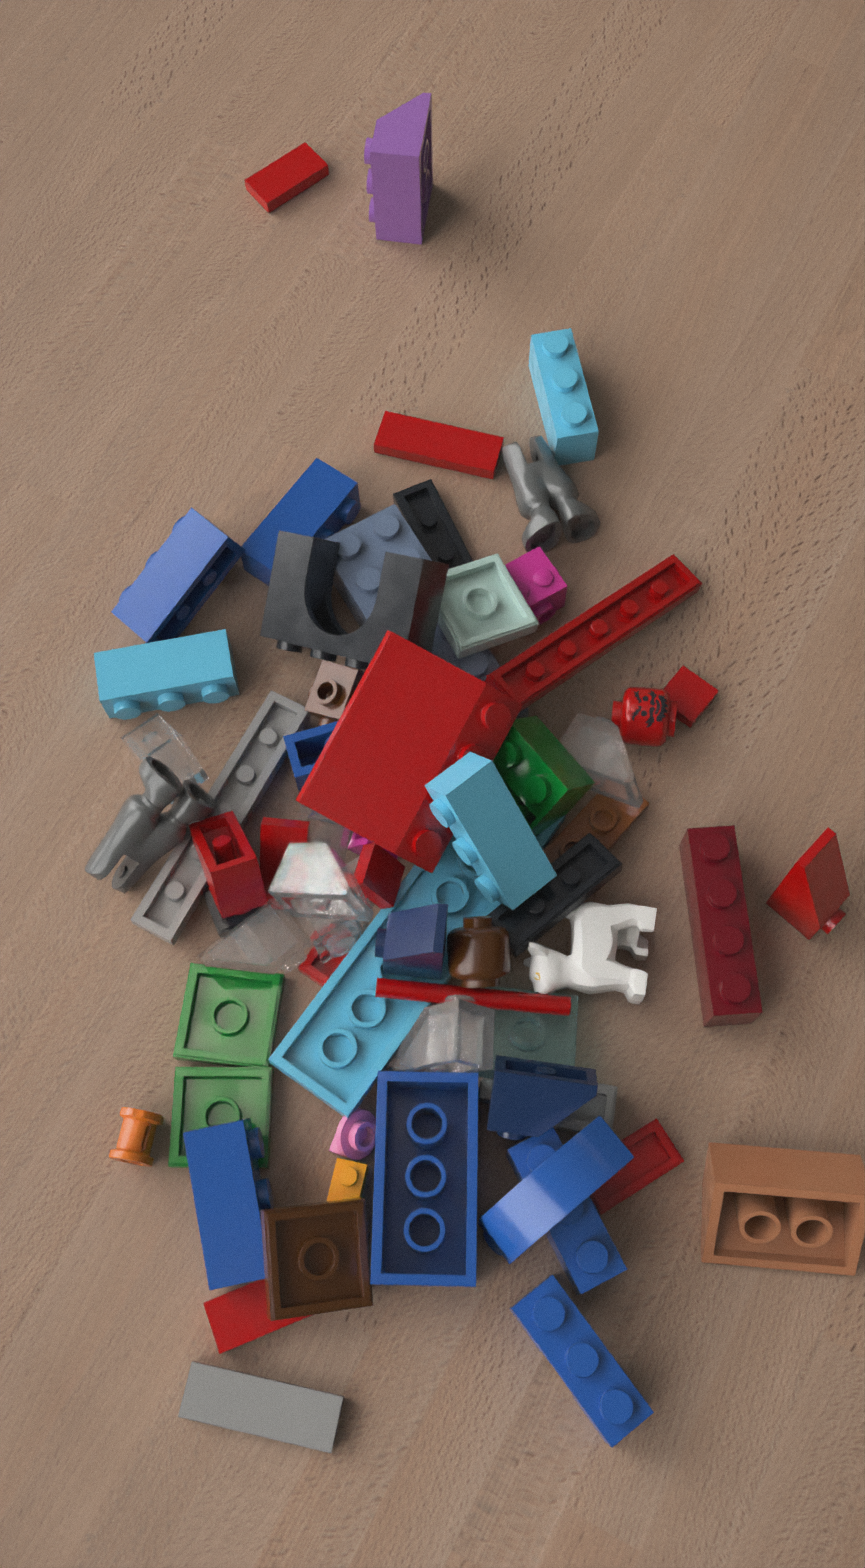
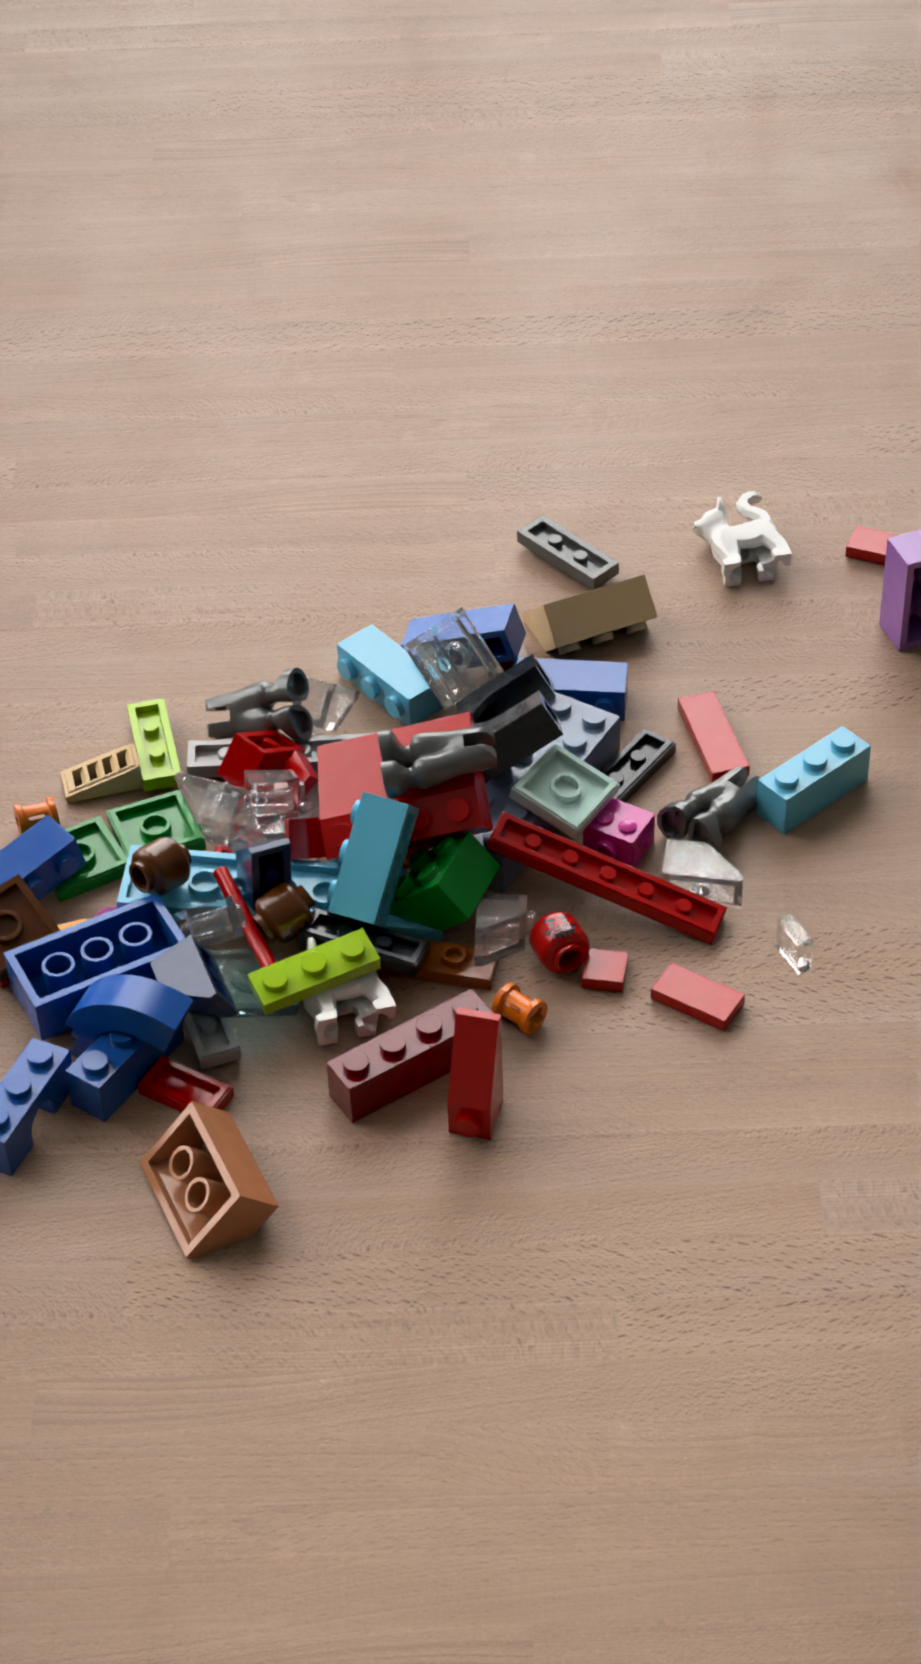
camera: 60 degrees right, 25 degrees down
(96, 1029) = (115, 773): none -> tan slope
(99, 425) = (568, 552): none -> dark grey plate
(104, 956) = (154, 743): none -> lime plate
(203, 283) = (745, 542): none -> white animal
(208, 452) = (592, 615): none -> tan slope
(220, 605) = (453, 658): none -> clear bracket
(347, 1048) = (160, 866): none -> reddish brown head
(439, 693) = (434, 758): none -> dark grey piece
(583, 966) = (314, 971): none -> lime plate
(621, 553) = (702, 871): none -> clear slope
(704, 796) = (516, 1001): none -> orange bush
(756, 526) = (794, 944): none -> clear tile
(763, 638) = (697, 996): none -> tile

